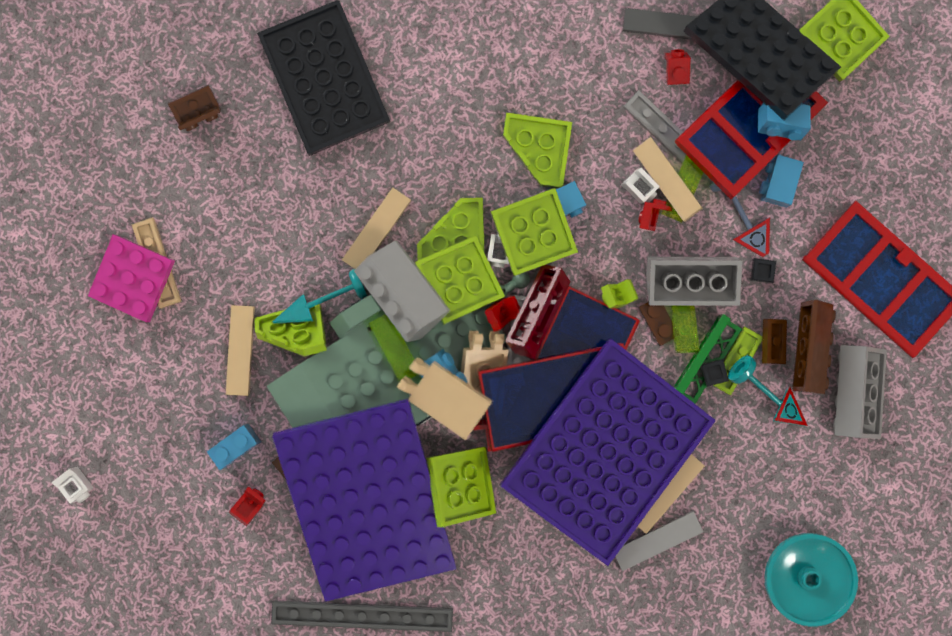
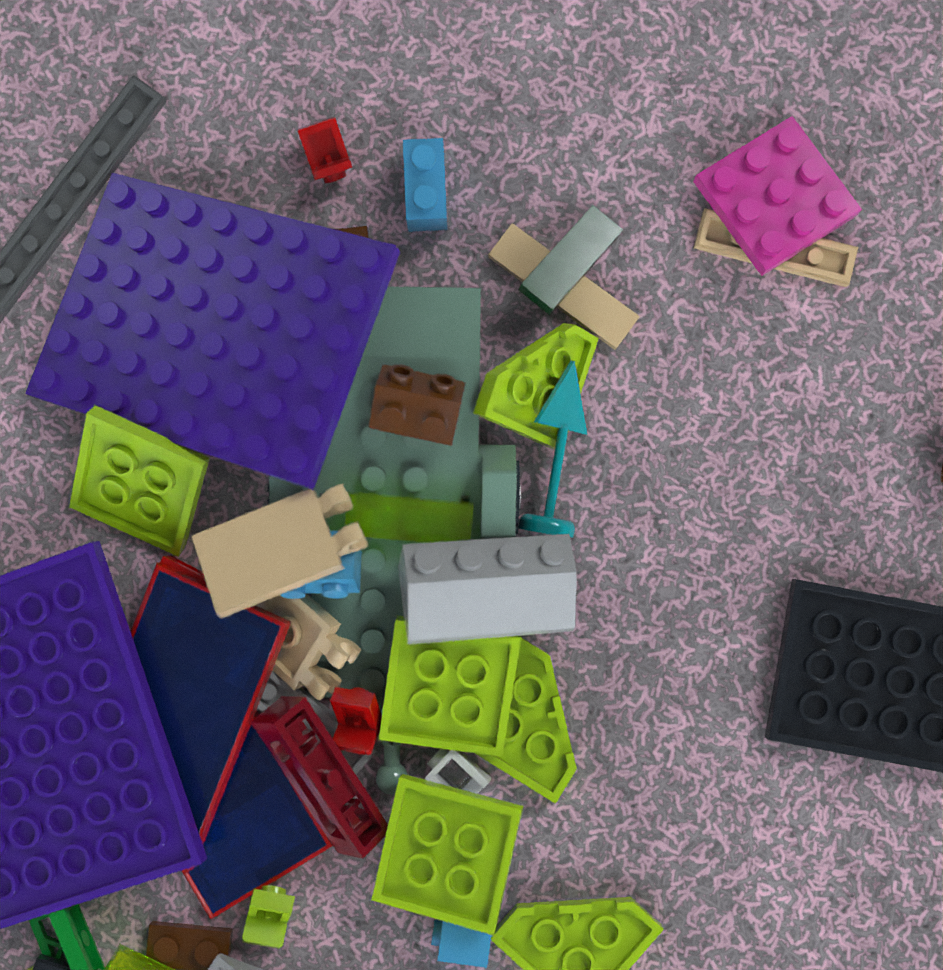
camera: 120 degrees right, 0 degrees up
(225, 354) = (570, 260): none -> tile
(339, 377) = (416, 404): none -> reddish brown bracket
(377, 228) = (613, 609): tan tile -> none

